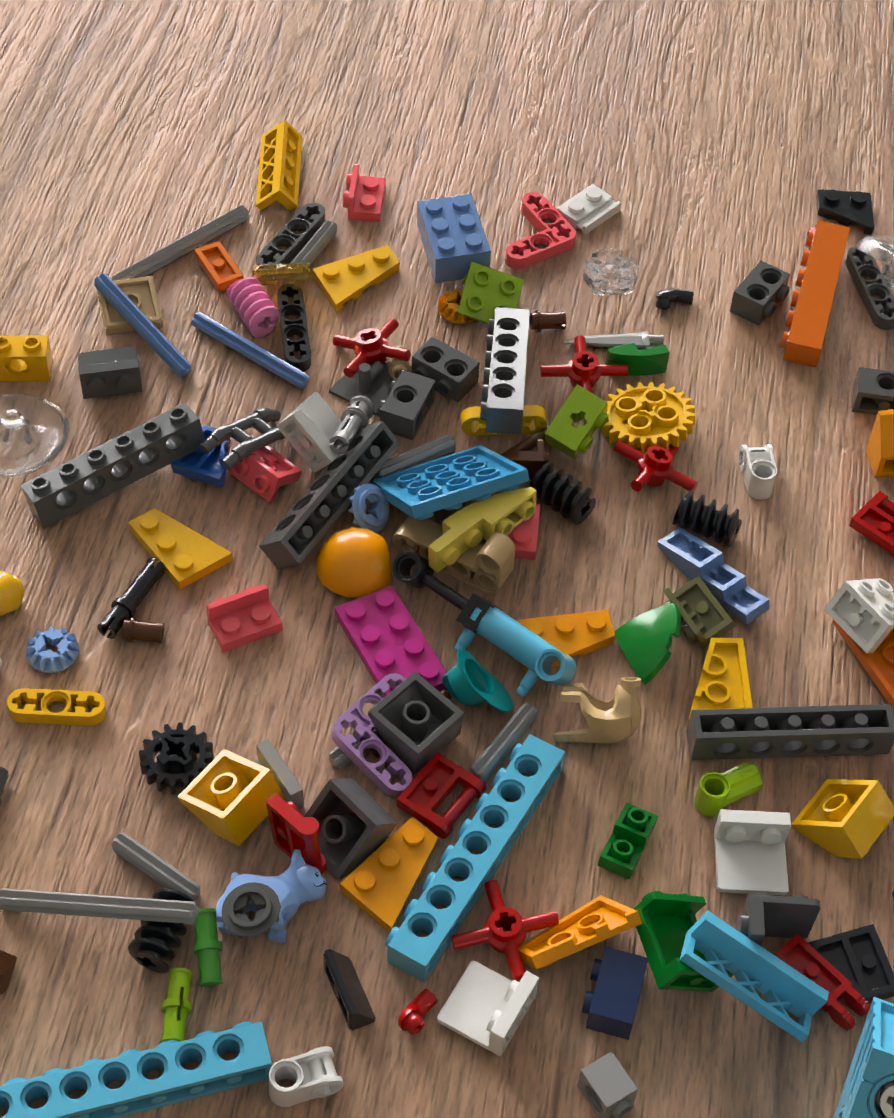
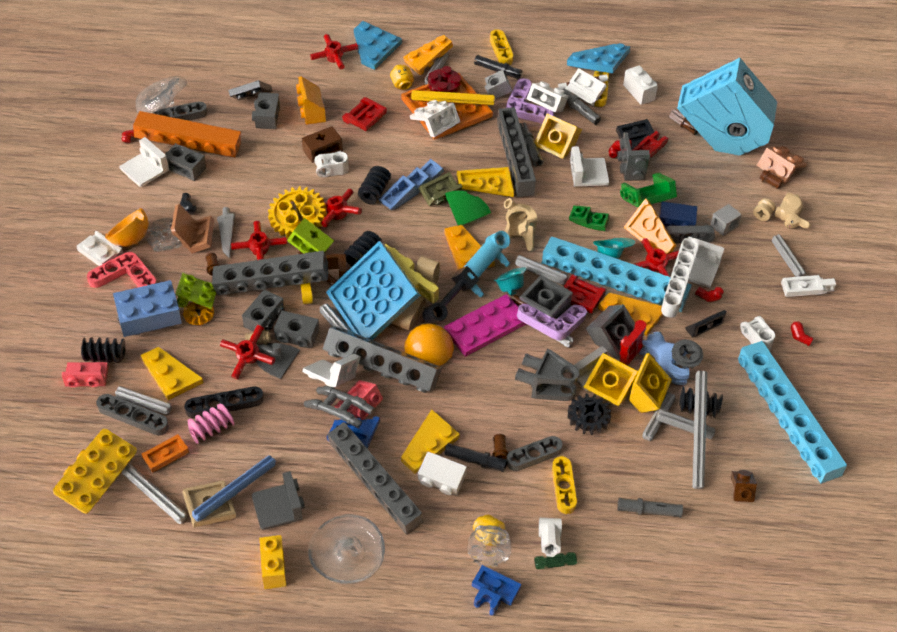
camera: 95 degrees left, 0 degrees up
(47, 660) = (521, 504): light blue gear -> none
(105, 545) = (442, 474): none -> white brick
(119, 688) = (528, 460): none -> dark grey beam
(128, 887) = (681, 422): none -> light grey axle
(176, 1005) = (738, 392): lime pin -> none
(198, 196) = (94, 471): none -> yellow bracket
(203, 841) = (649, 386): none -> yellow slope
(207, 948) = (712, 381): bright green pin -> none
(243, 617) = (481, 397): coral bracket -> none
(250, 350) = (248, 425): medium blue axle -> none
(256, 703) = (549, 376): none -> dark grey piece
(284, 162) = (51, 423): yellow fence -> none
(293, 272) = (176, 409): clear yellow plate -> none
(352, 420) = (318, 352): light grey pin -> none
(378, 510) = (390, 339): light blue gear -> none
(397, 206) = (103, 351): none -> black piece
(441, 949) = (679, 277): none -> white beam
(540, 854) = (613, 247): none -> teal piece
(572, 1006) = (705, 233): none -> dark grey beam
(609, 228) = (129, 230): none -> light orange cylinder
(609, 288) = (191, 233): none -> nougat bracket
(639, 362) = (247, 218): green slope -> none
(724, 788) = (551, 178): lime piece -> none
(751, 246) = (147, 165): none -> white bracket
(754, 970) = (661, 163): medium azure fence -> none
(806, 458) = (322, 142): none -> reddish brown brick
(821, 928) = (615, 147): none -> red arm
(836, 766) = (531, 146): none -> dark grey pin
(846, 208) = (100, 123): black wing -> none

